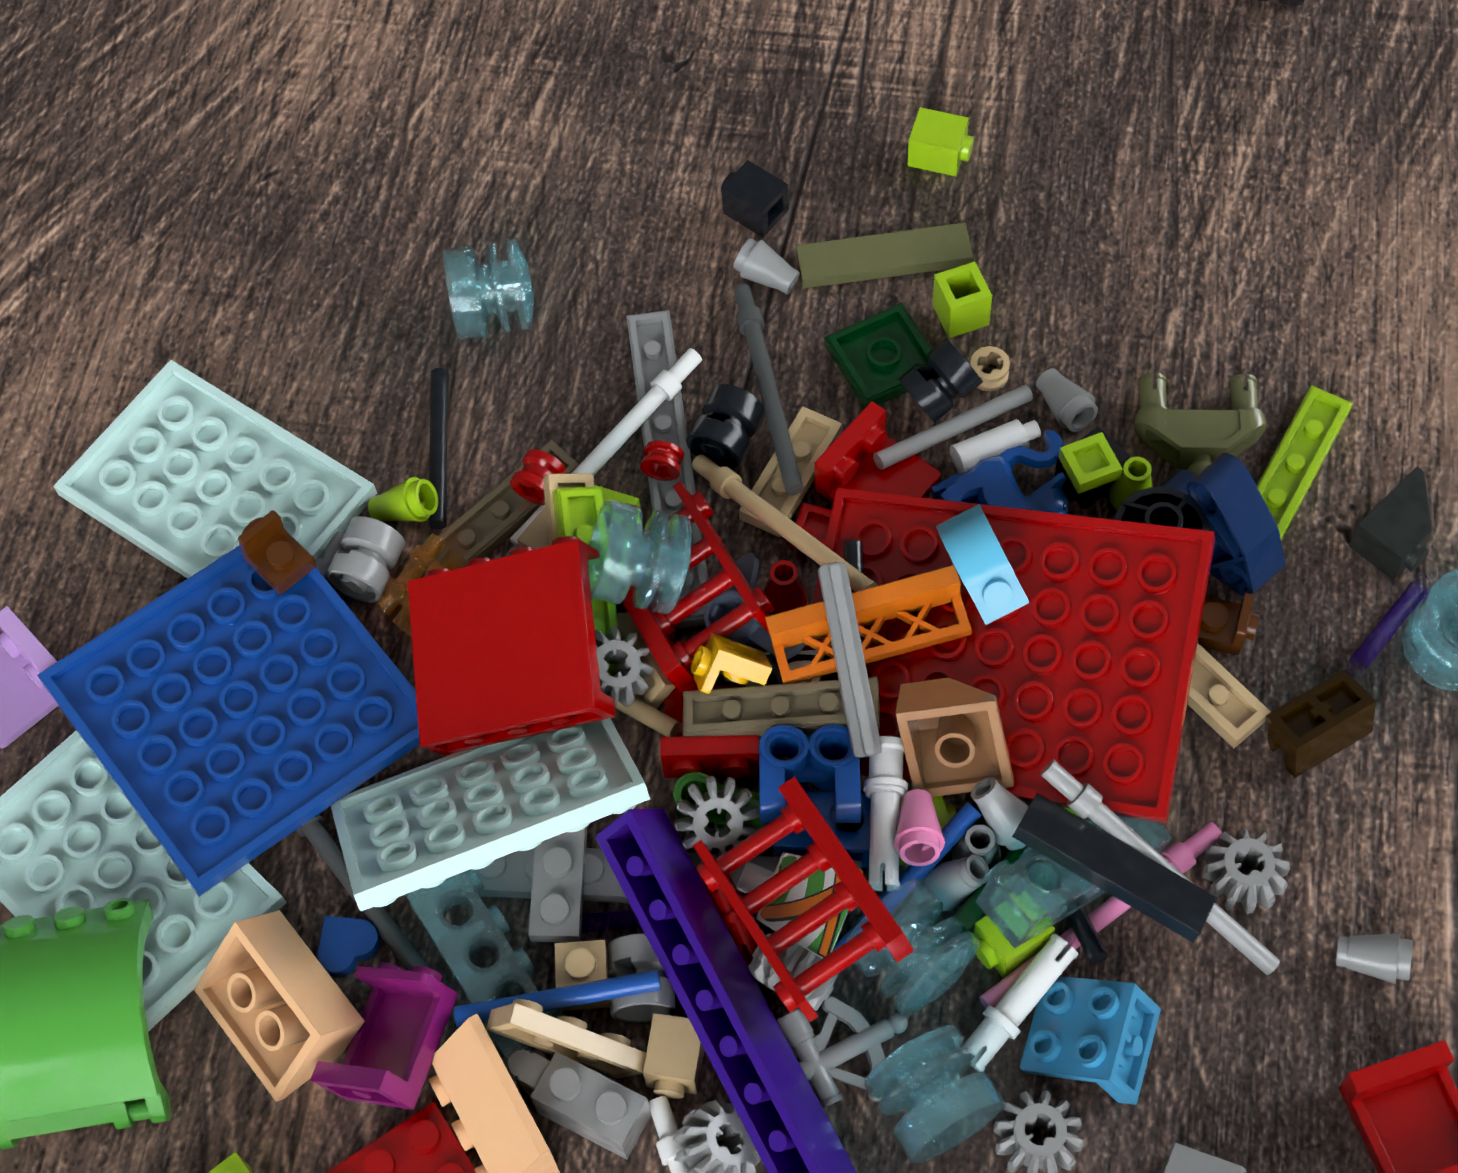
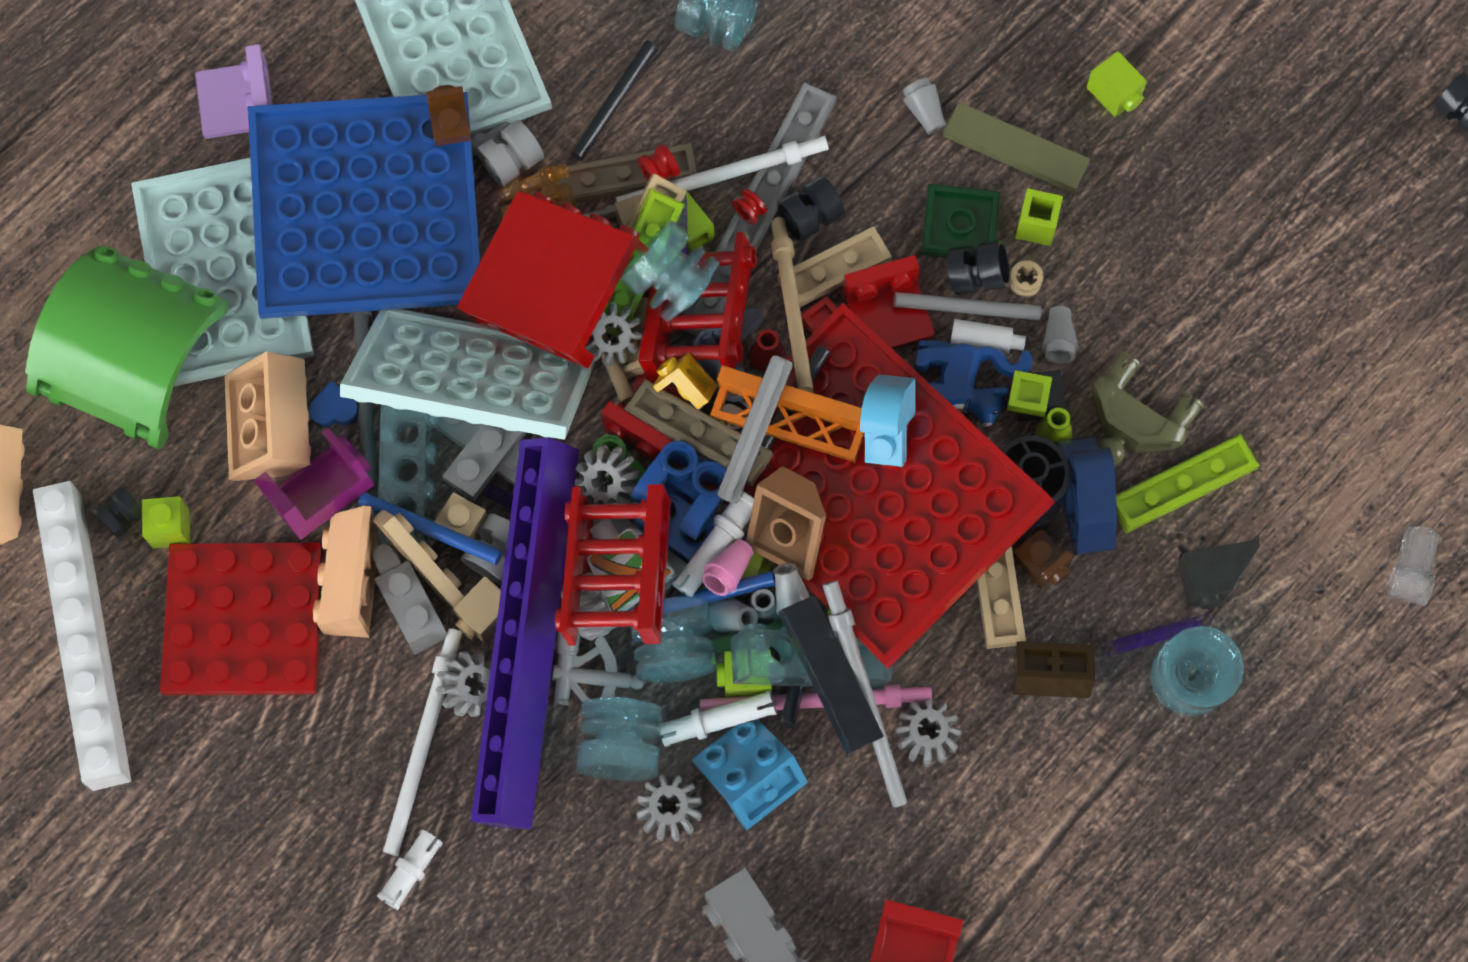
camera: 30 degrees right, 10 degrees up
(408, 501) = (564, 129): lime cone -> none
(751, 325) = (884, 143): dark grey bar -> none
(754, 198) = (954, 47): black brick -> none
(1376, 955) = (970, 842): light grey cone -> none

